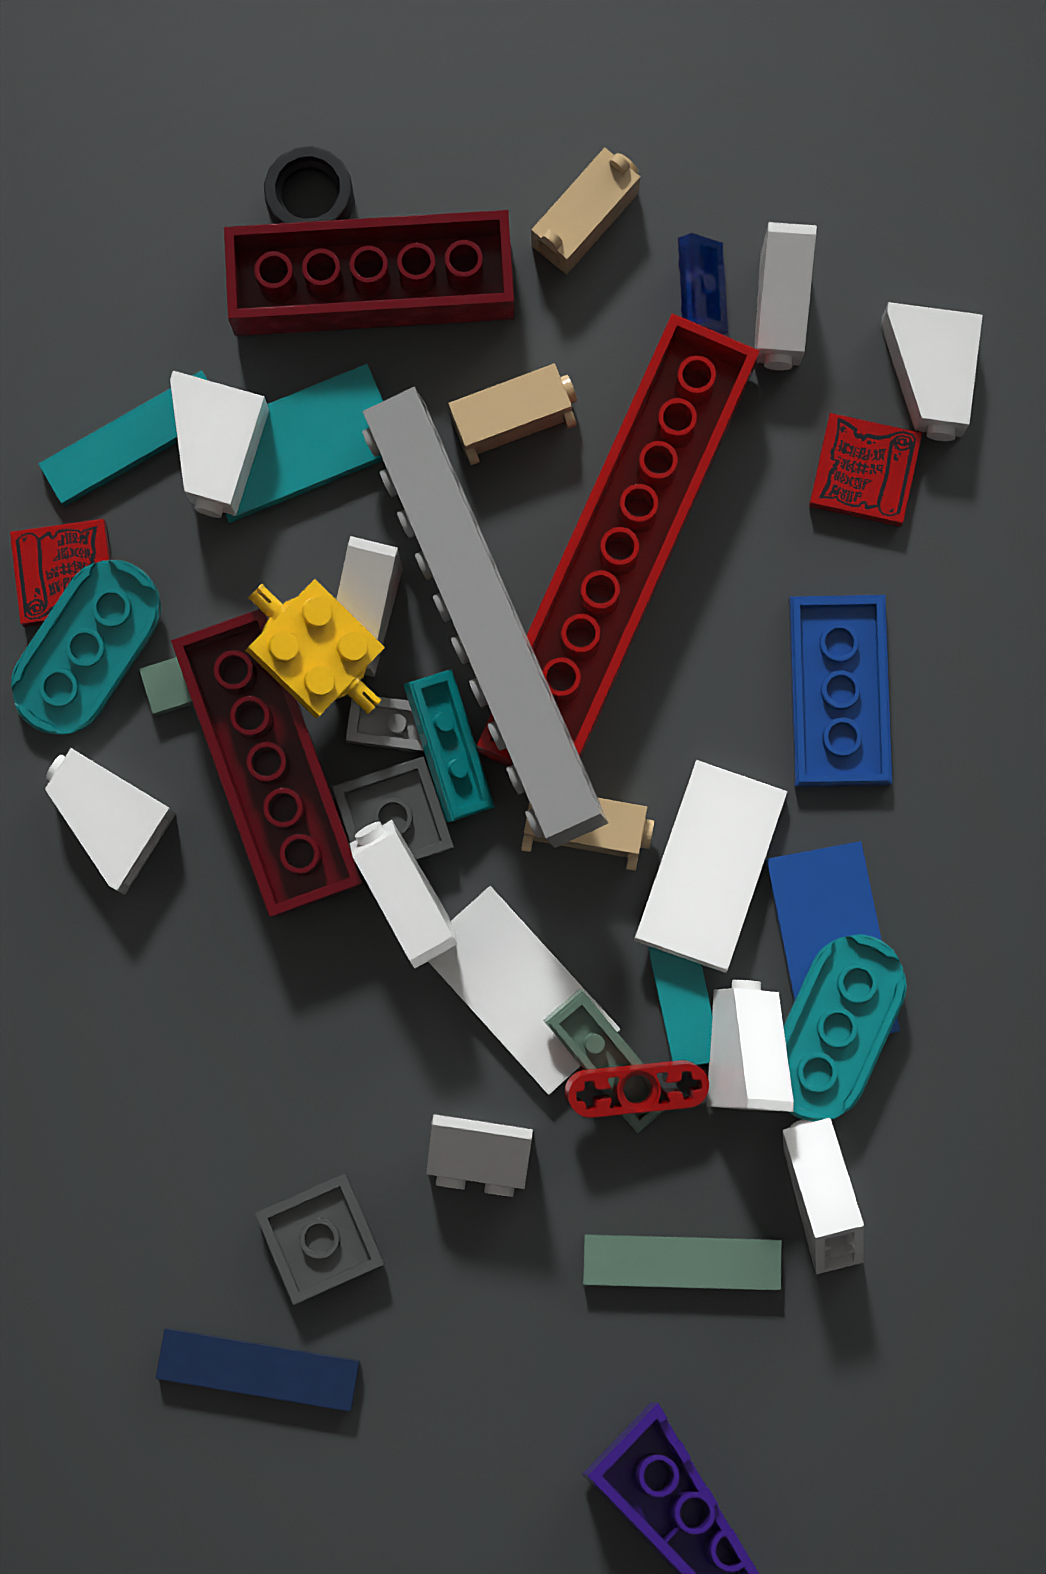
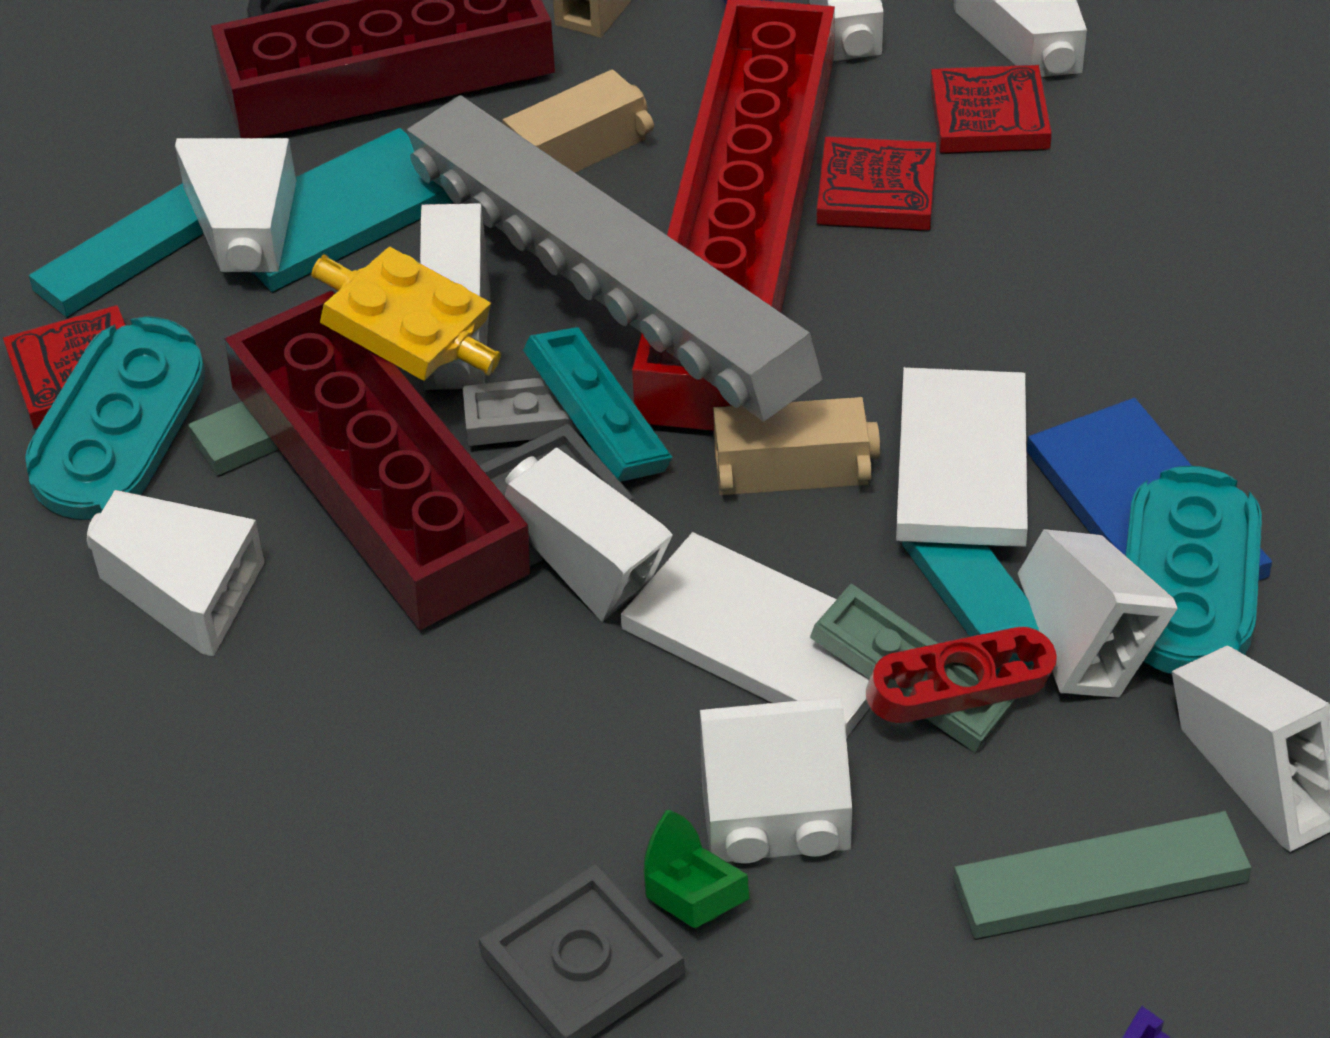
camera: 15 degrees left, 35 degrees down
(406, 1200) = (687, 876): none -> green plate
(743, 535) = (876, 183): none -> red tile
(840, 691) = (1047, 287): blue tile -> none

